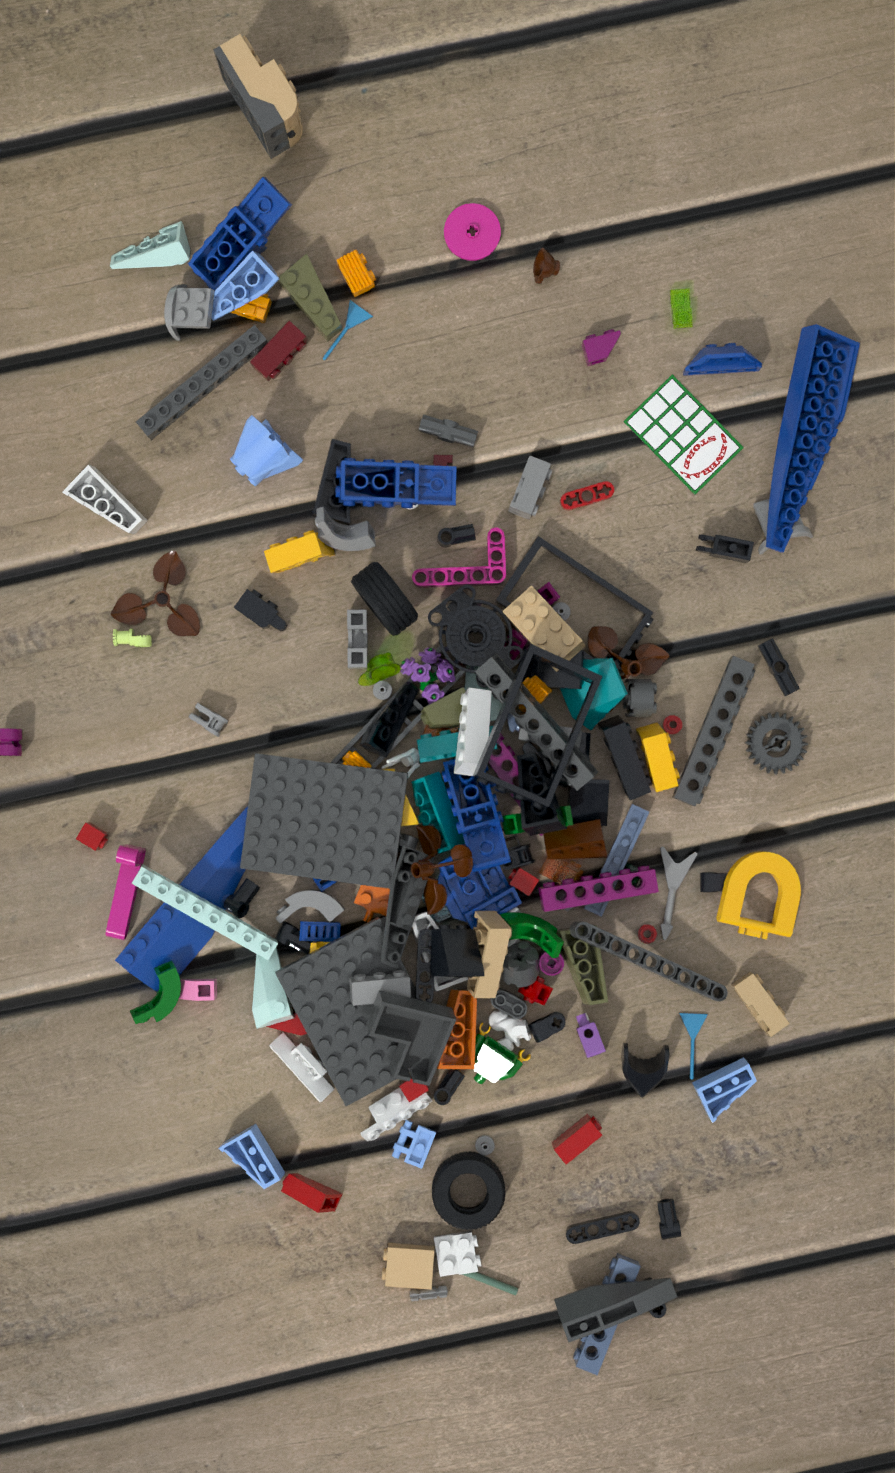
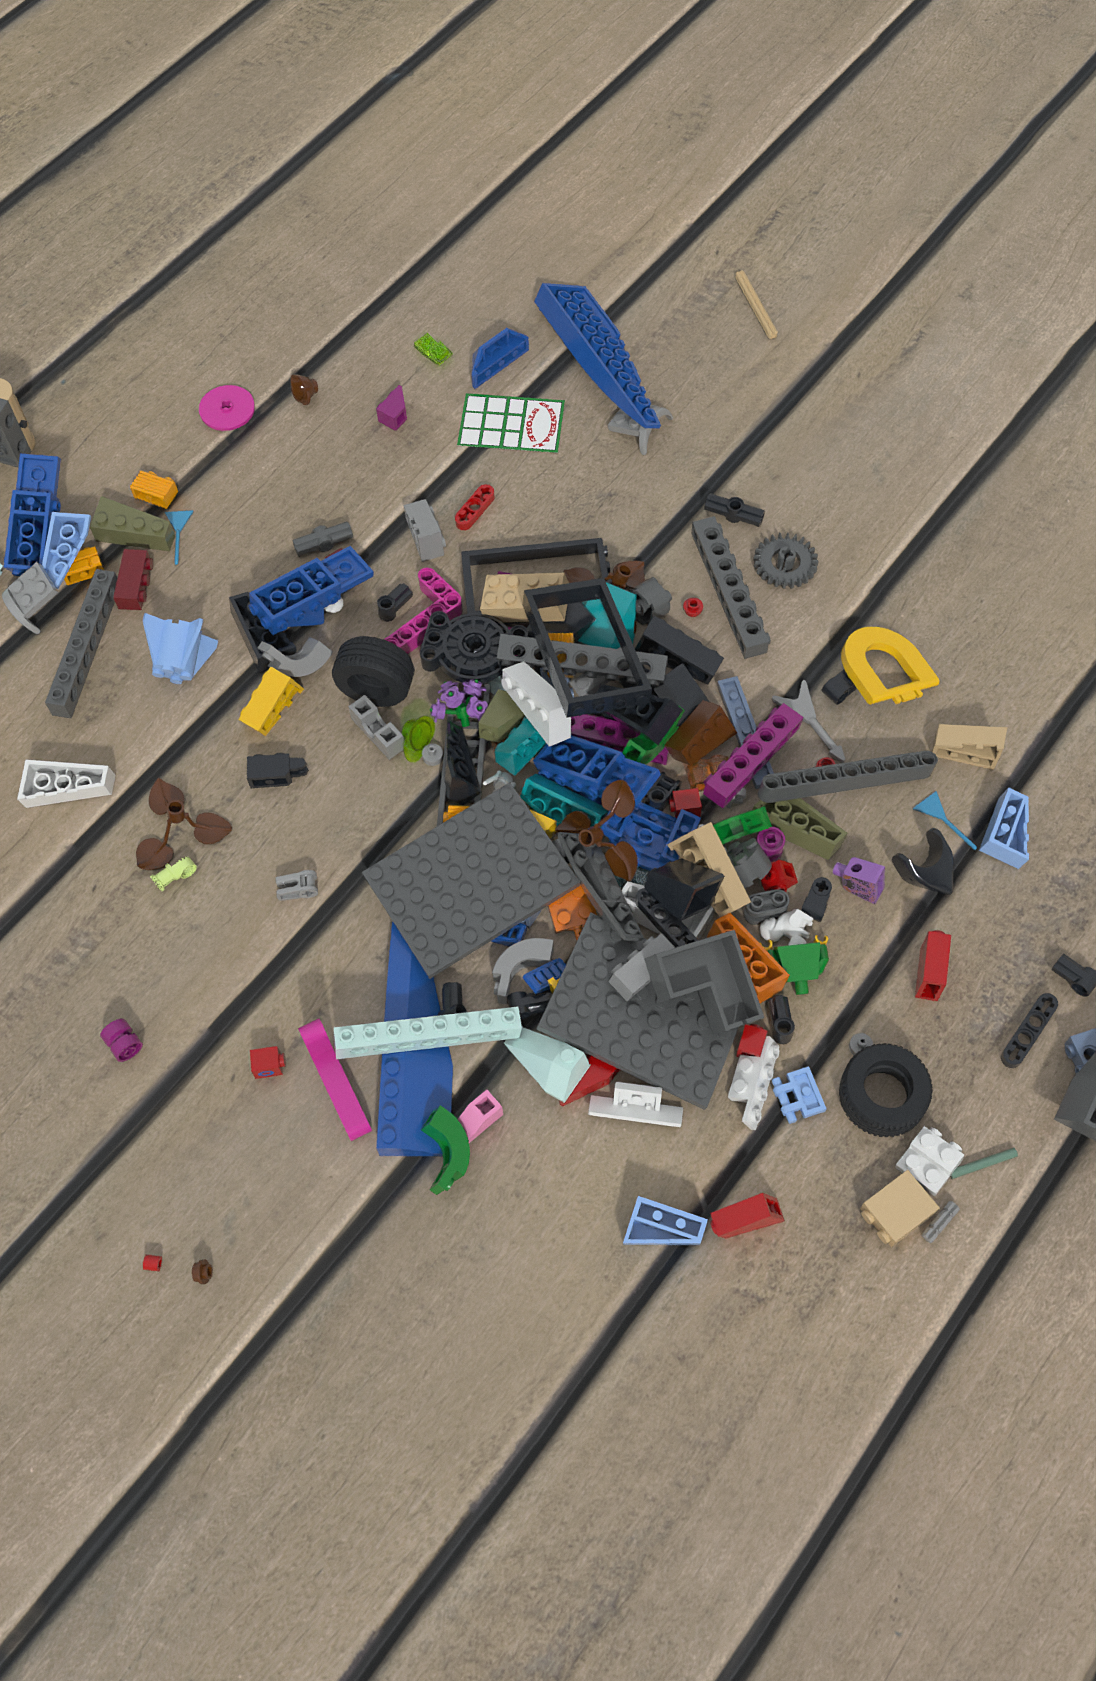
camera: 35 degrees left, 25 degrees down
(658, 757) = (707, 629): yellow wedge -> none
(727, 548) = (616, 460): black hinge -> none

